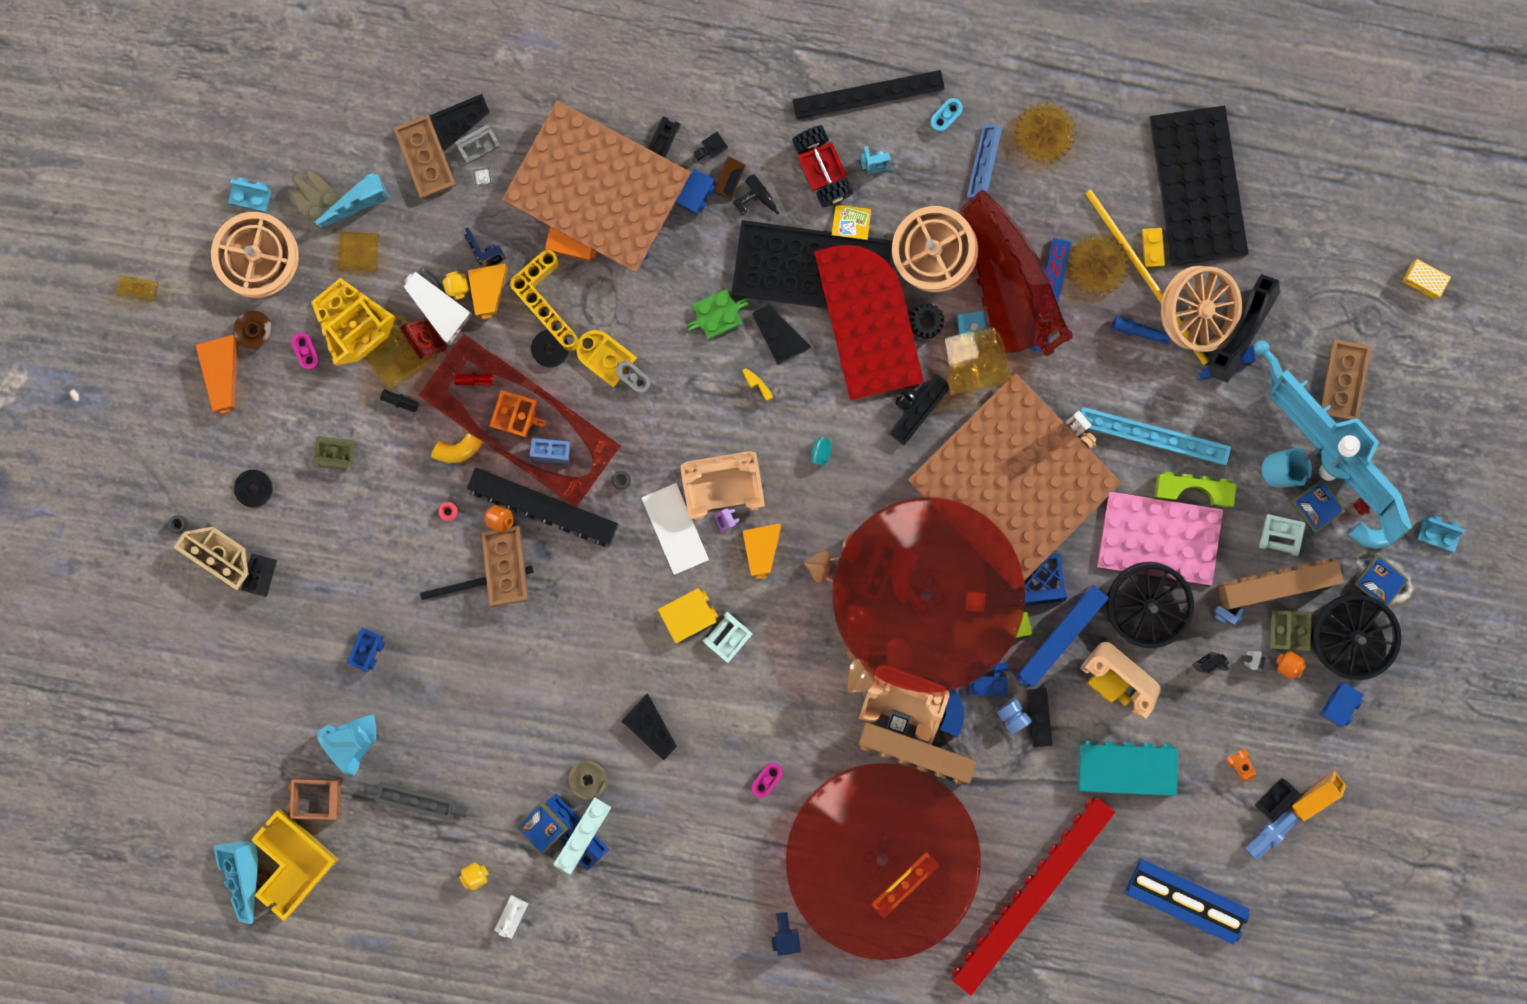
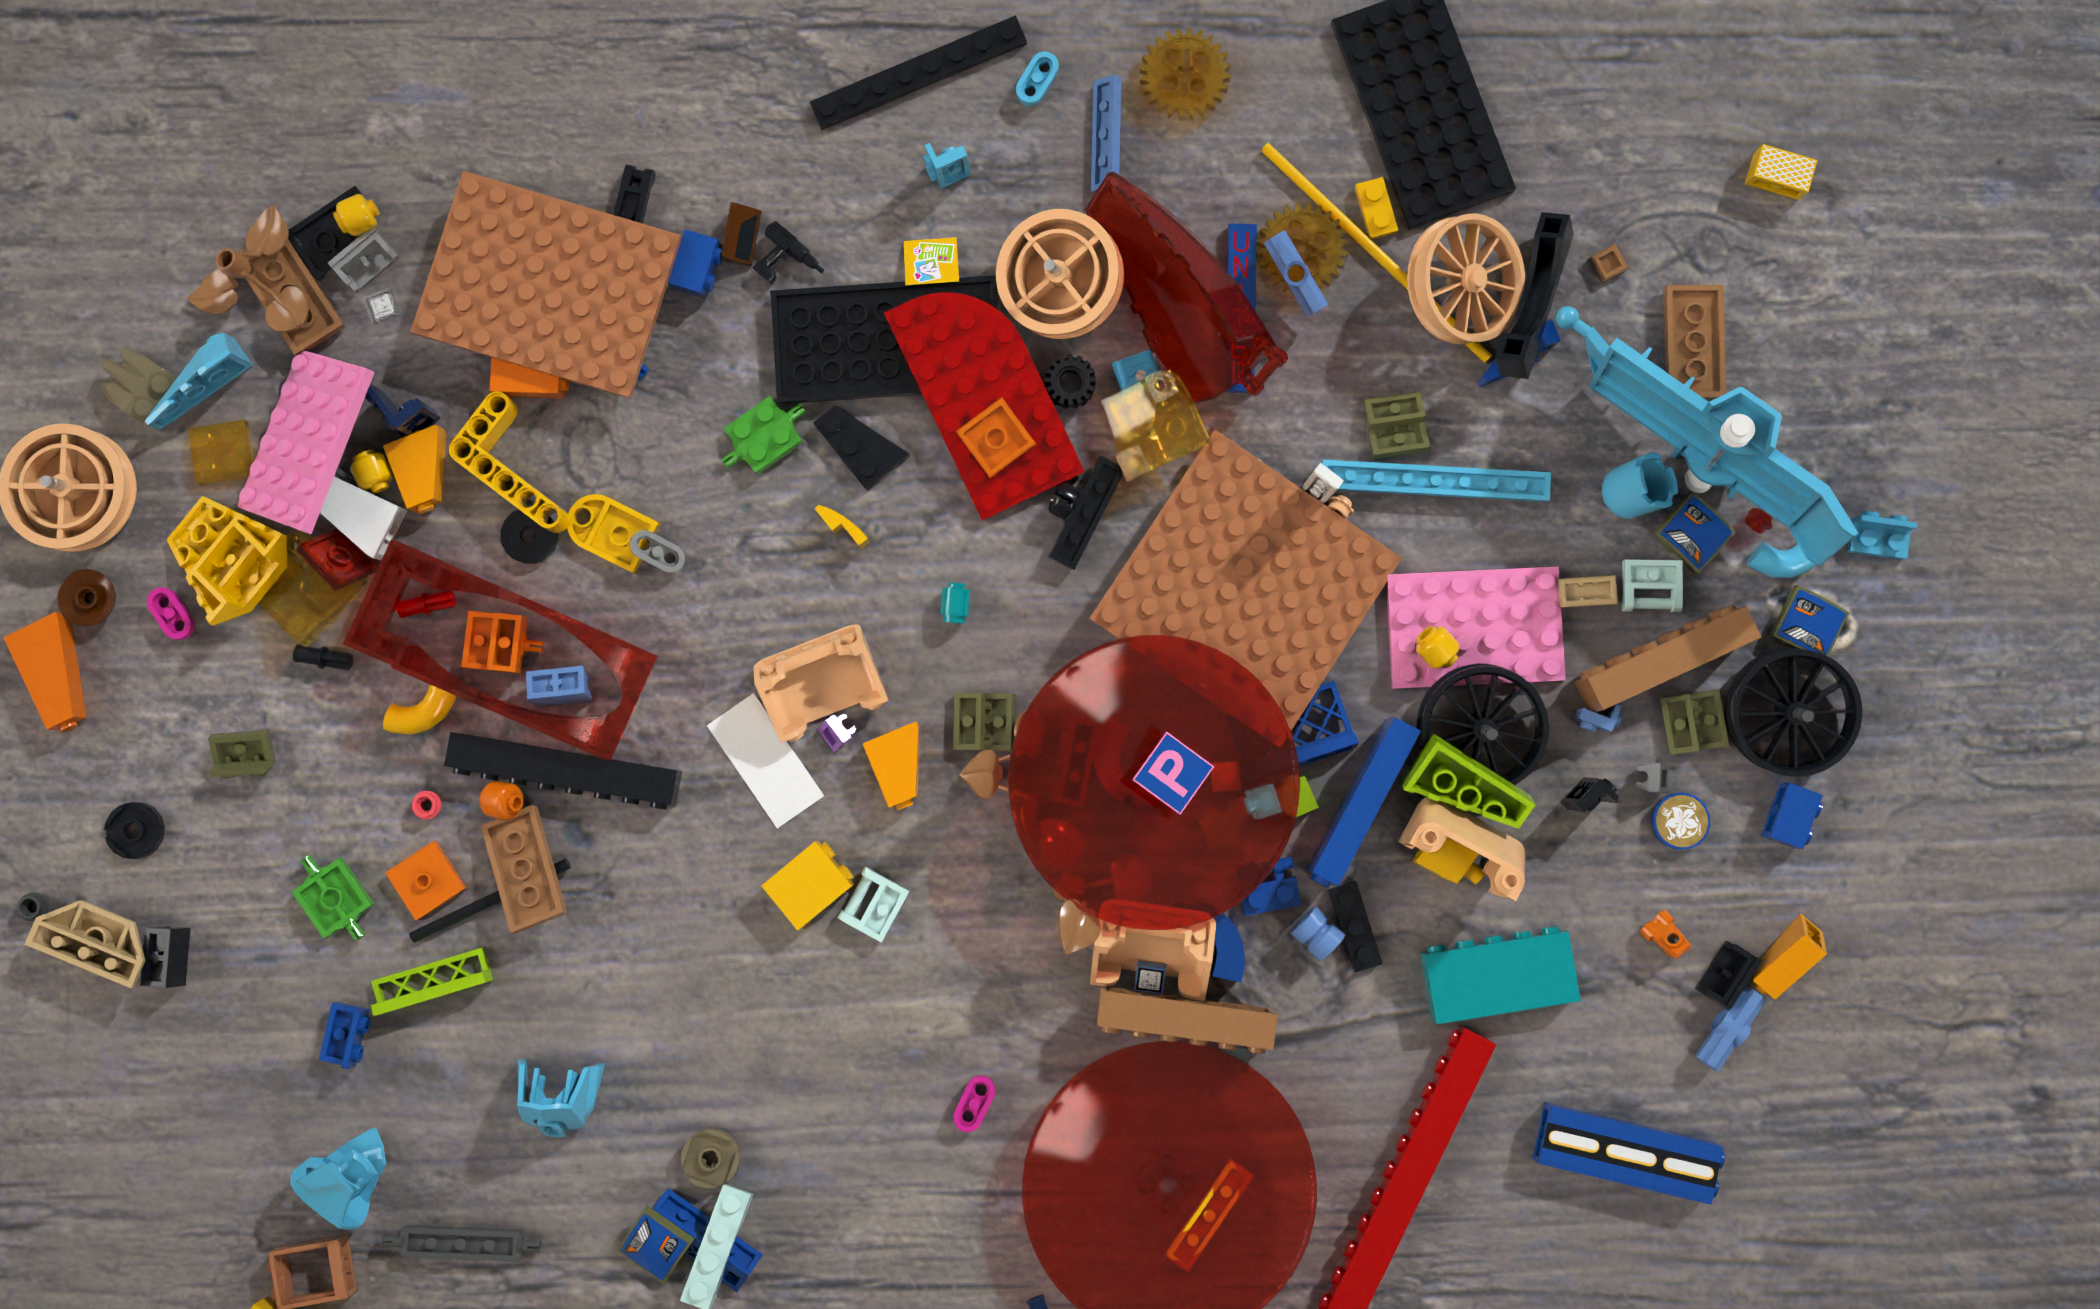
camera: 10 degrees left, 0 degrees up
(249, 195) = (46, 403): medium azure bracket -> none
(375, 559) = (332, 897): none -> bright green plate
(377, 143) = (217, 291): none -> medium nougat plant
(416, 635) = (430, 992): none -> lime fence
(418, 256) = (305, 440): none -> bright pink plate
(437, 560) = (426, 880): none -> orange plate
(480, 114) = (356, 215): none -> yellow head
(497, 729) = (565, 1111): none -> medium azure piece
(621, 480) = (671, 706): dark grey plate -> none
(650, 728) = (786, 1061): black wing -> none
(712, 145) = (707, 193): black plate -> none
(822, 166) = (870, 188): plate -> none
(824, 532) = (984, 721): none -> olive slope
(871, 348) = (996, 437): none -> orange tile
(942, 591) = (1173, 773): none -> blue piece
(995, 621) = (1262, 801): none -> clear light blue plate
(1094, 294) = (1285, 256): none -> medium blue piece
(1126, 634) = (1459, 780): none -> lime wedge
(1131, 545) = (1437, 647): none -> yellow head
(1132, 328) = (1371, 330): blue pin -> none
(1136, 394) = (1396, 425): none -> olive slope
(1220, 492) = (1547, 543): lime arch -> none
(1239, 530) = (1587, 591): none -> tan plate
(1268, 693) = (1680, 821): none -> tile
(1290, 665) = (1705, 773): orange head -> none
(1299, 316) = (1608, 263): none -> medium nougat tile

